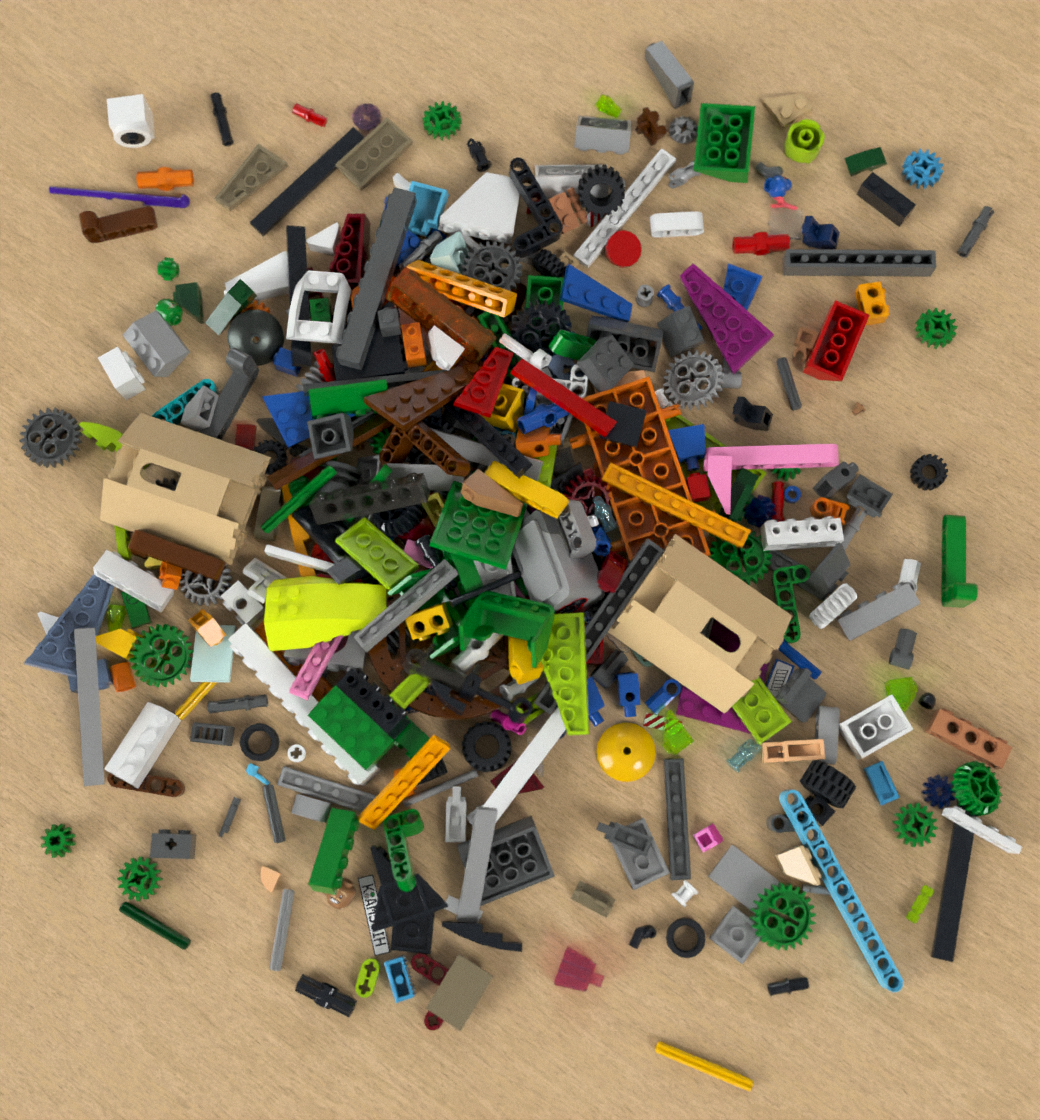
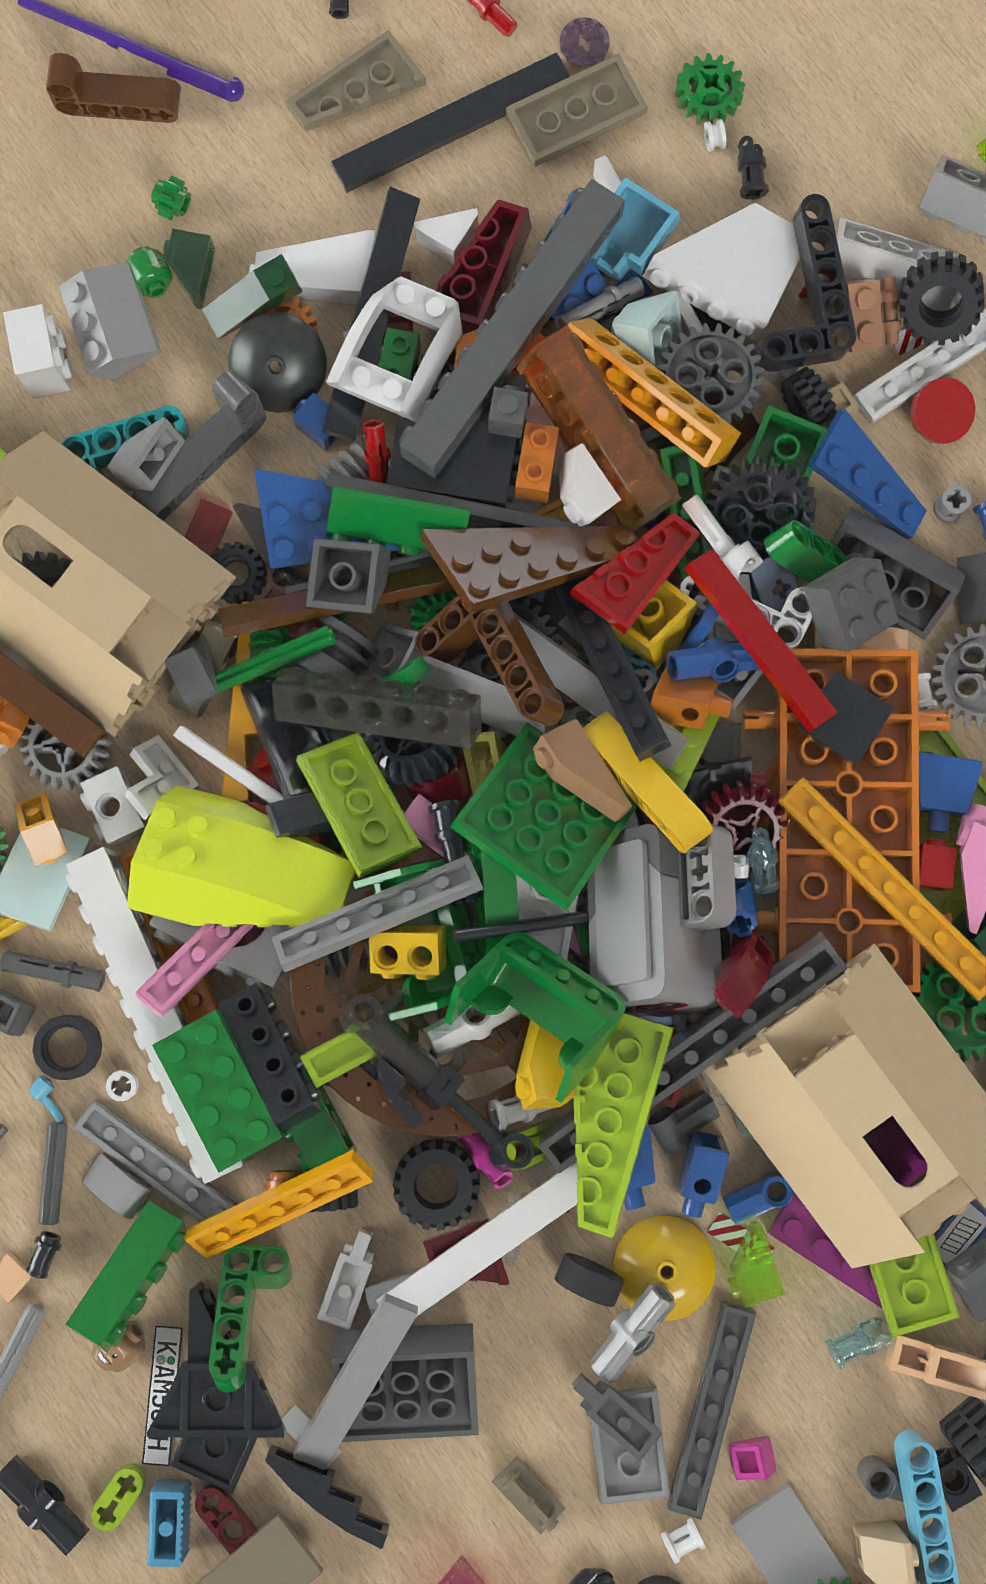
camera: 15 degrees right, 5 degrees up
(165, 179) = (215, 41): orange piece -> none
(264, 514) = (193, 672): none -> dark grey slope
(283, 859) = (43, 1254): none -> black pin
(440, 788) = (340, 1223): light grey bar -> none
(453, 143) = (714, 135): none -> white bush
(586, 769) = (589, 1280): none -> black tyre
(619, 789) = (632, 1332): none -> light grey piece

